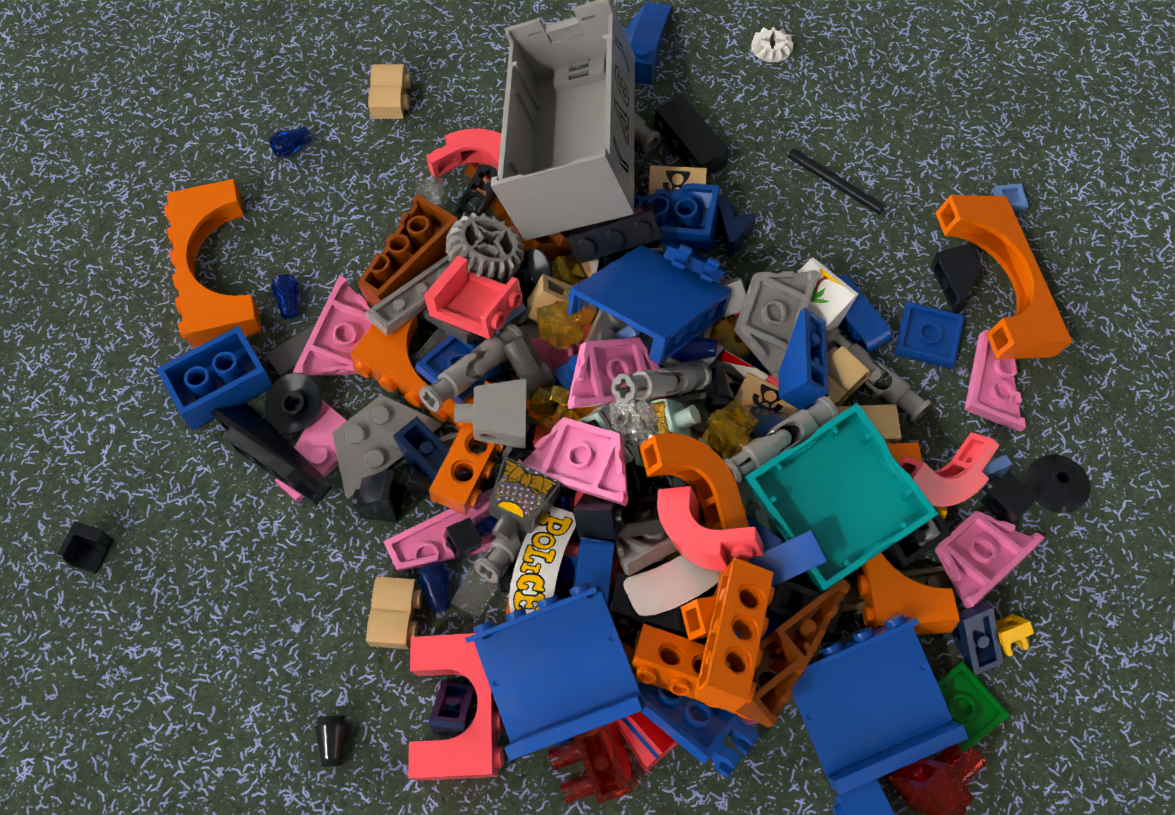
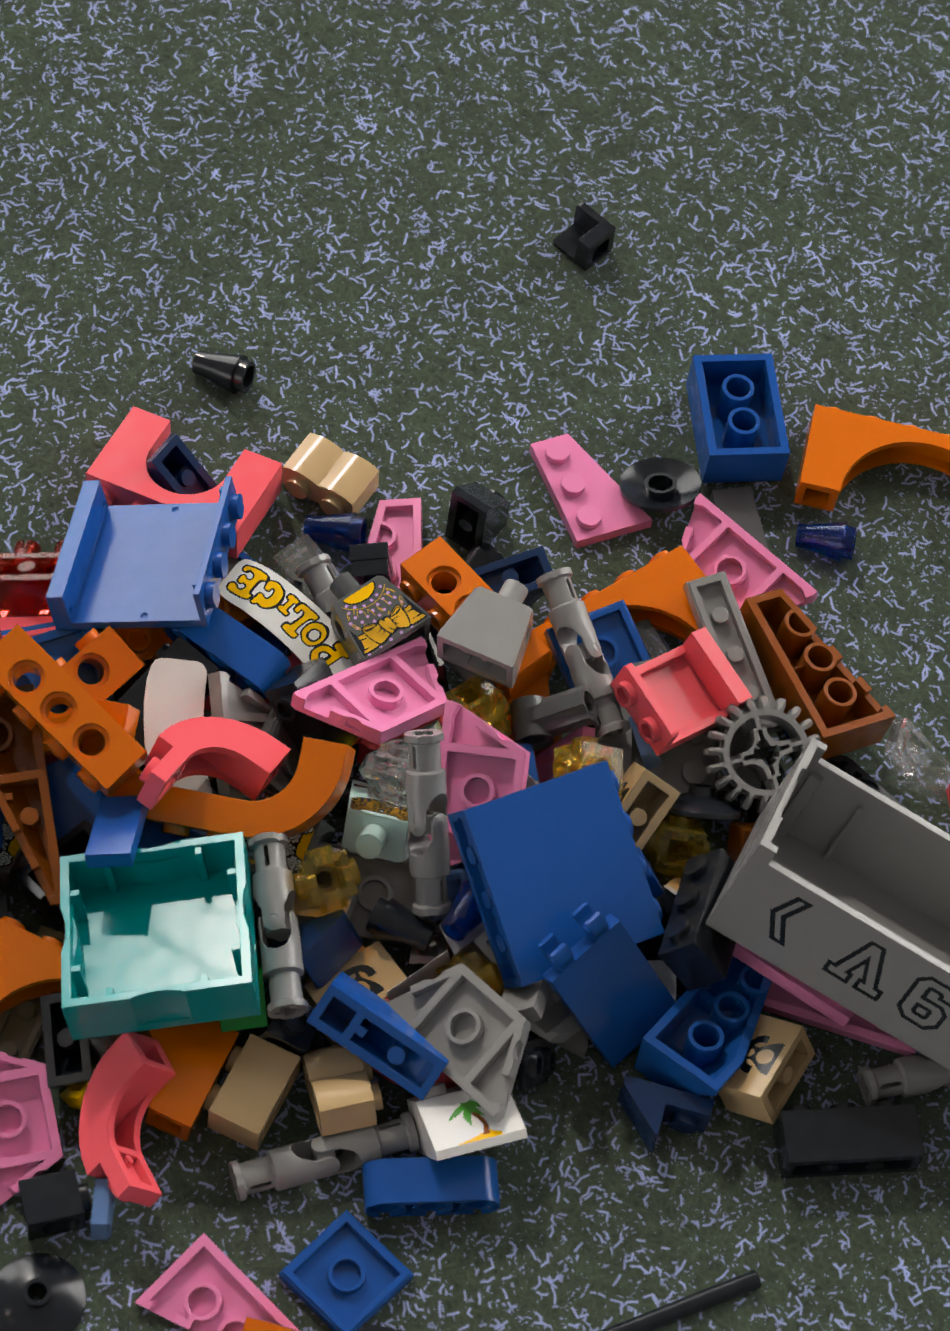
camera: 105 degrees right, 5 degrees down
(265, 447) = (606, 433): black wedge -> none
(367, 442) = (568, 533): light grey wing -> none

